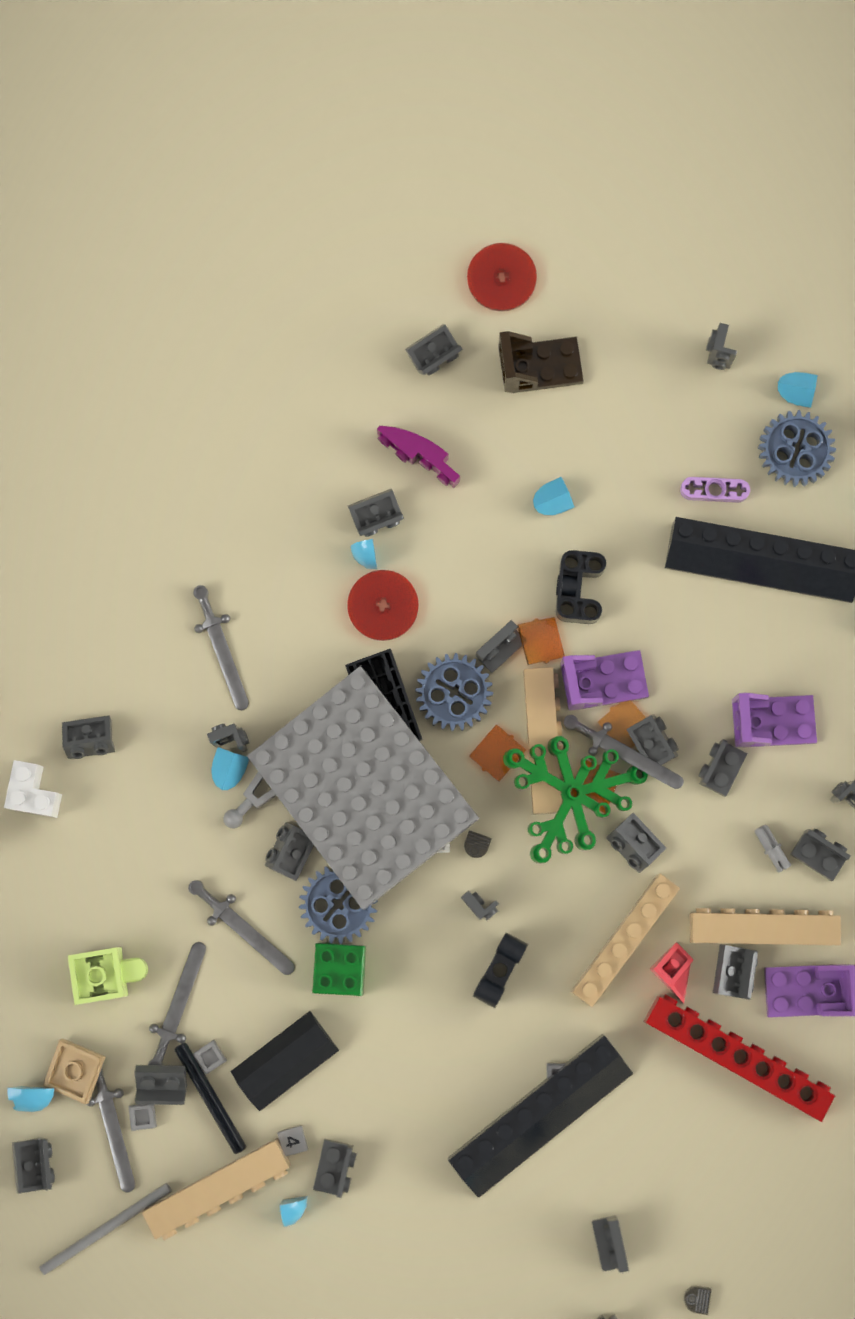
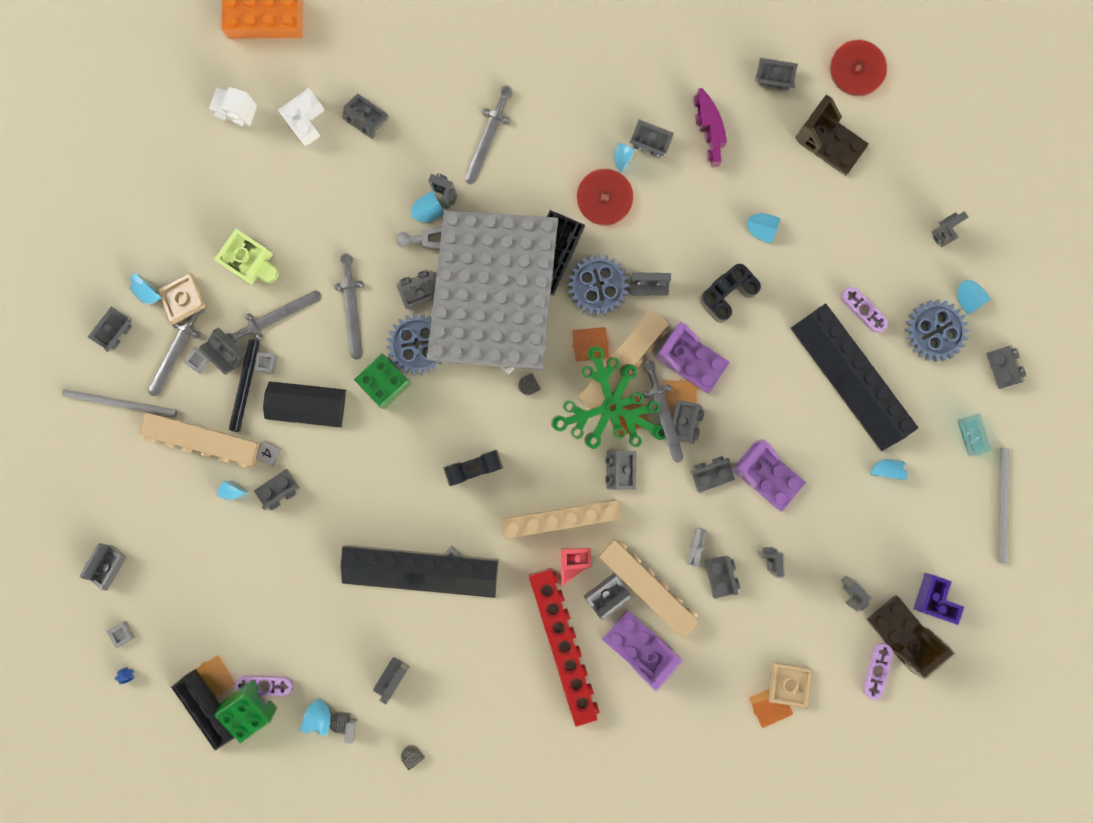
camera: 40 degrees right, 5 degrees up
(475, 903) = (495, 416): dark grey bracket -> none
(541, 641) = (677, 302): clear orange piece -> none

